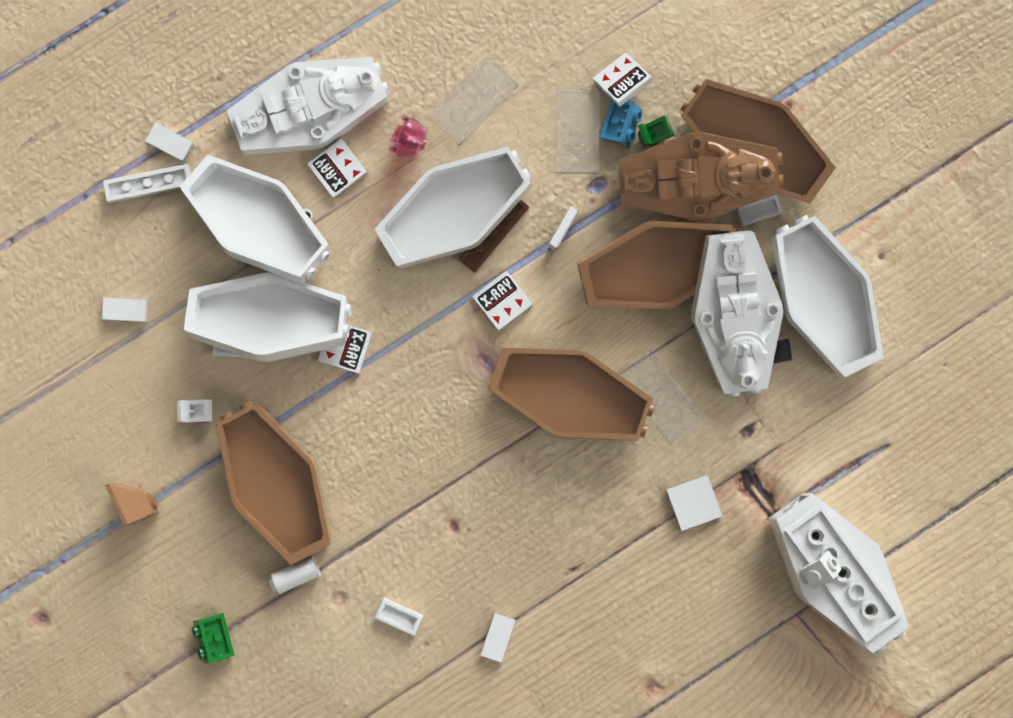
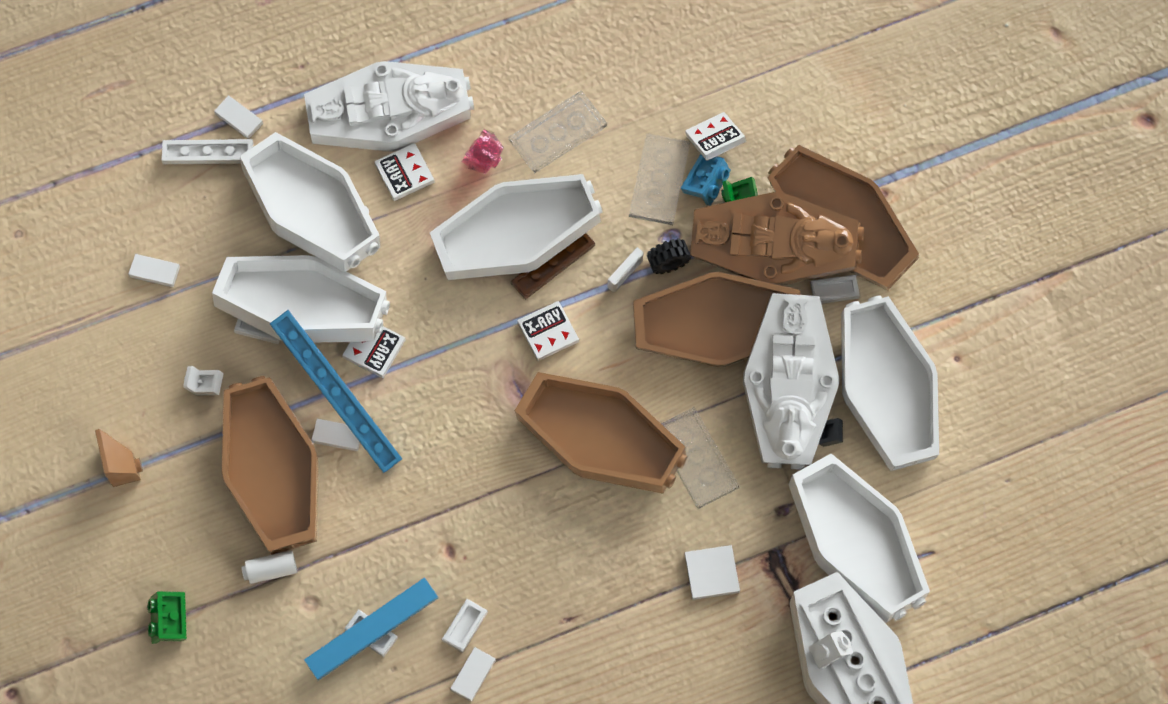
camera: 10 degrees right, 15 degrees down
(318, 401) = (335, 391): none -> dark azure tile
(329, 437) = (334, 435): none -> white tile
(398, 616) = (371, 629): none -> dark azure tile
(481, 594) = (464, 625): none -> white tile
(601, 209) = (668, 256): none -> black tyre
(823, 451) = (859, 537): none -> white container

